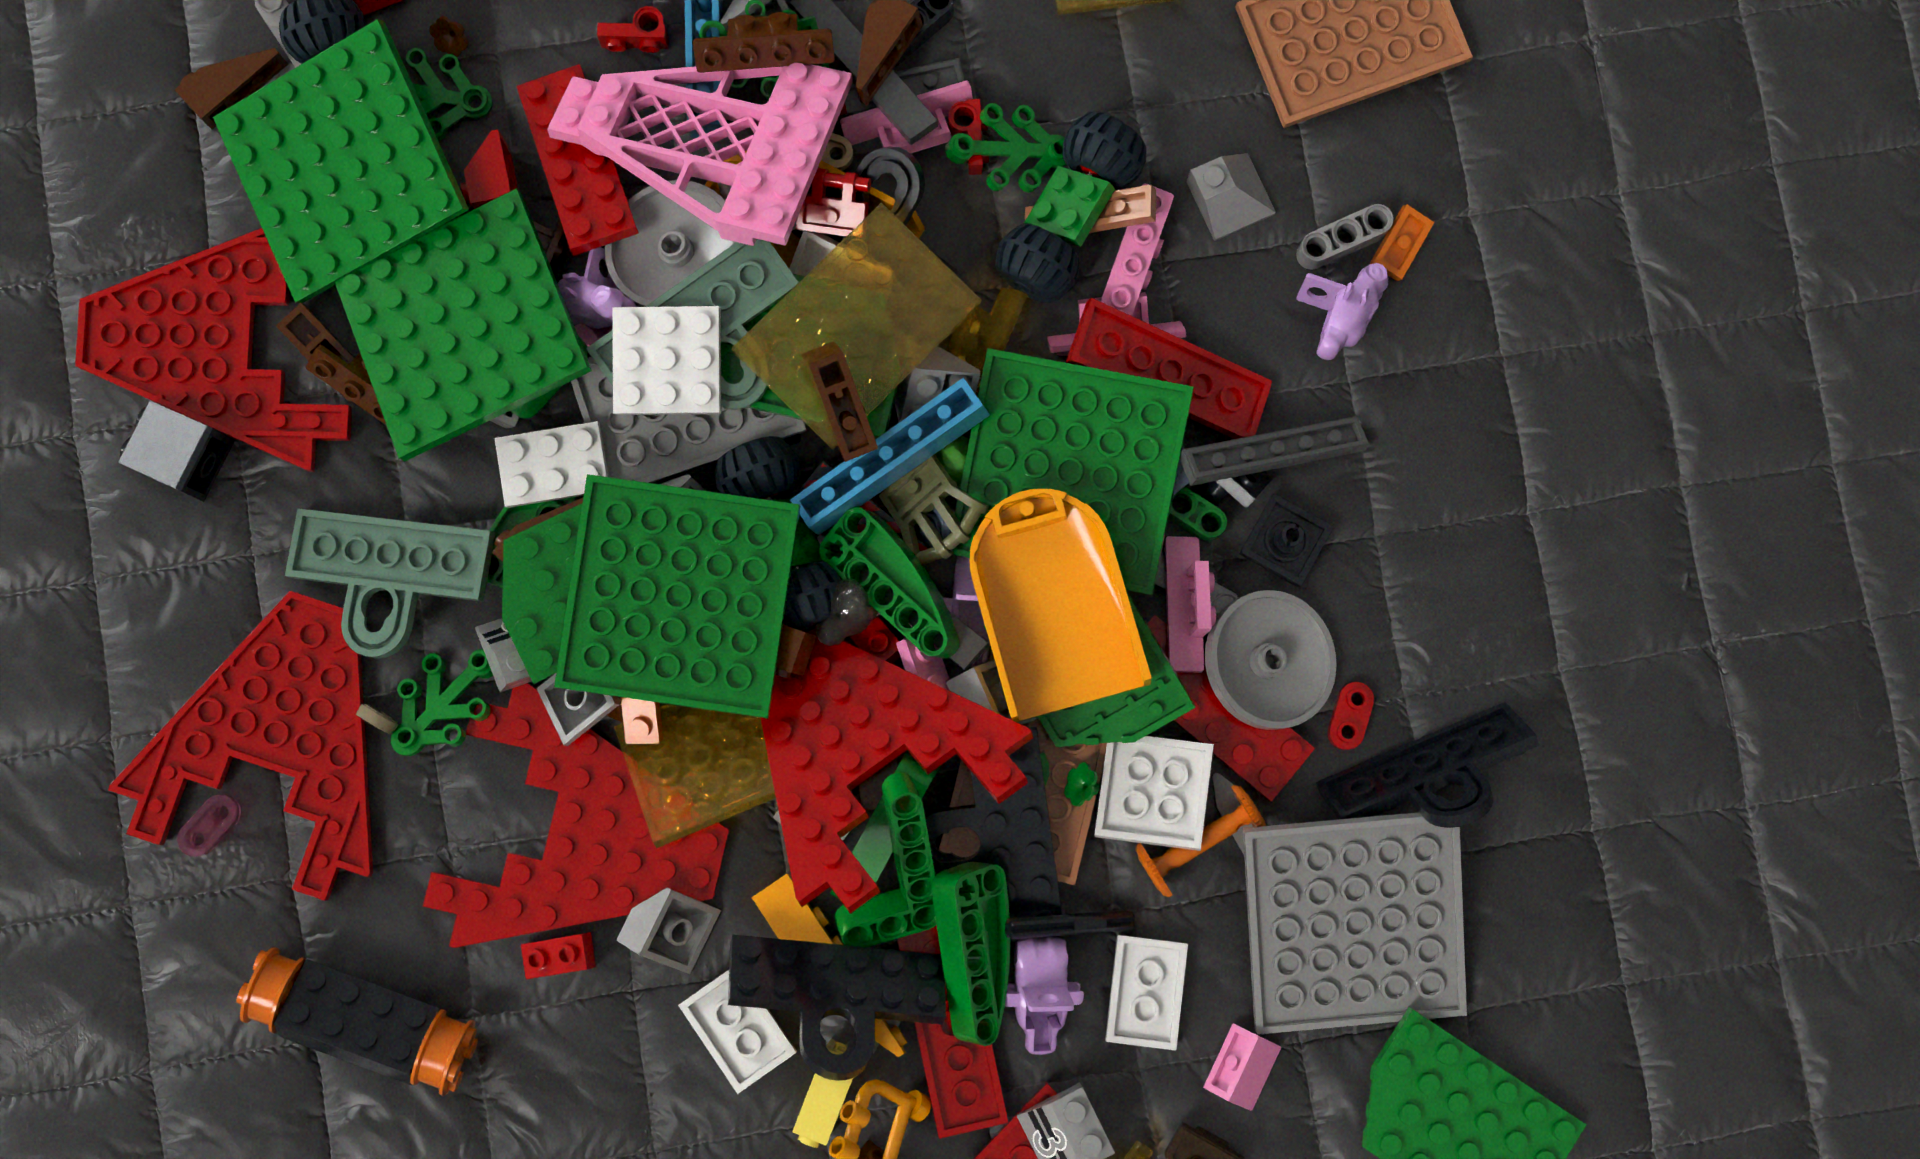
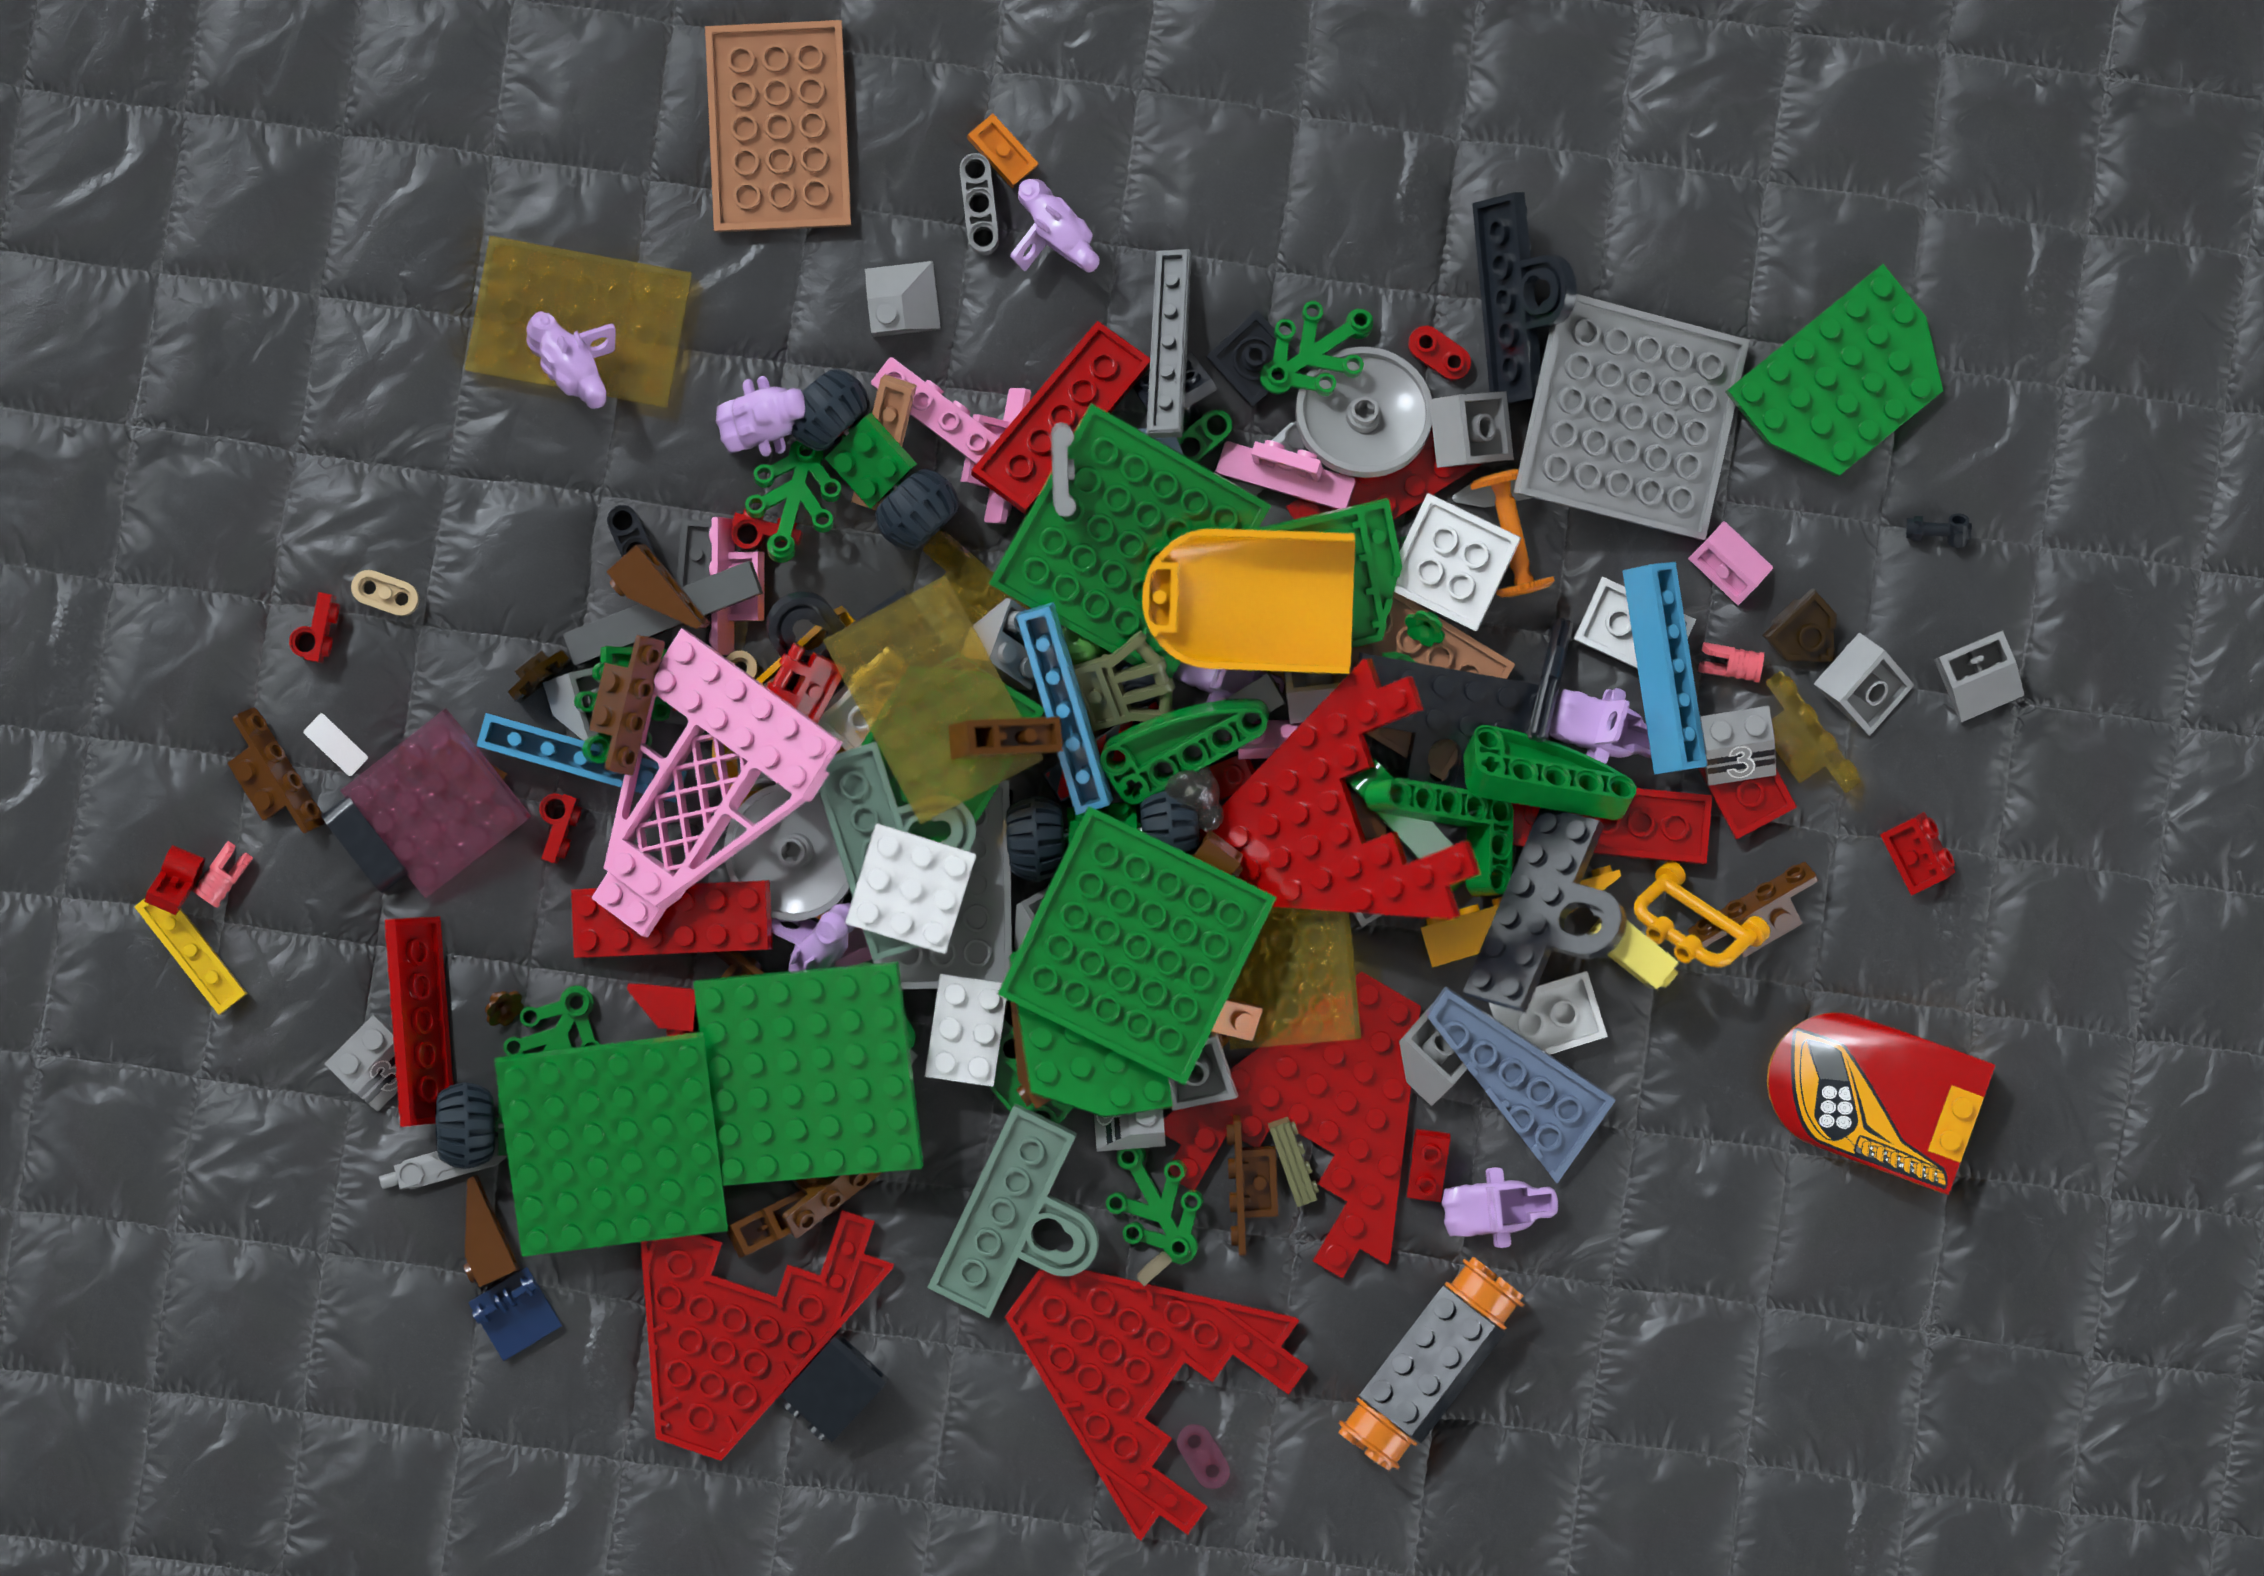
camera: 65 degrees left, 5 degrees up
(164, 135) = (515, 1314): none -> dark blue hinge
(490, 790) = (1254, 1183): none -> reddish brown bracket
(521, 821) = (1291, 1157): none -> olive piece
(535, 1037) = (1496, 1207): none -> lavender piece
(661, 1036) = (1534, 1091): none -> sand blue wing
(1075, 92) = (759, 417): none -> lavender piece
(1118, 1035) = (1664, 668): none -> dark azure brick
(1120, 377) = (1062, 469): none -> light grey plate
(1145, 1107) = (1739, 664): none -> coral hinge
(1289, 768) = (1471, 429): none -> light grey slope
(1310, 593) = (1313, 354): none -> green plant

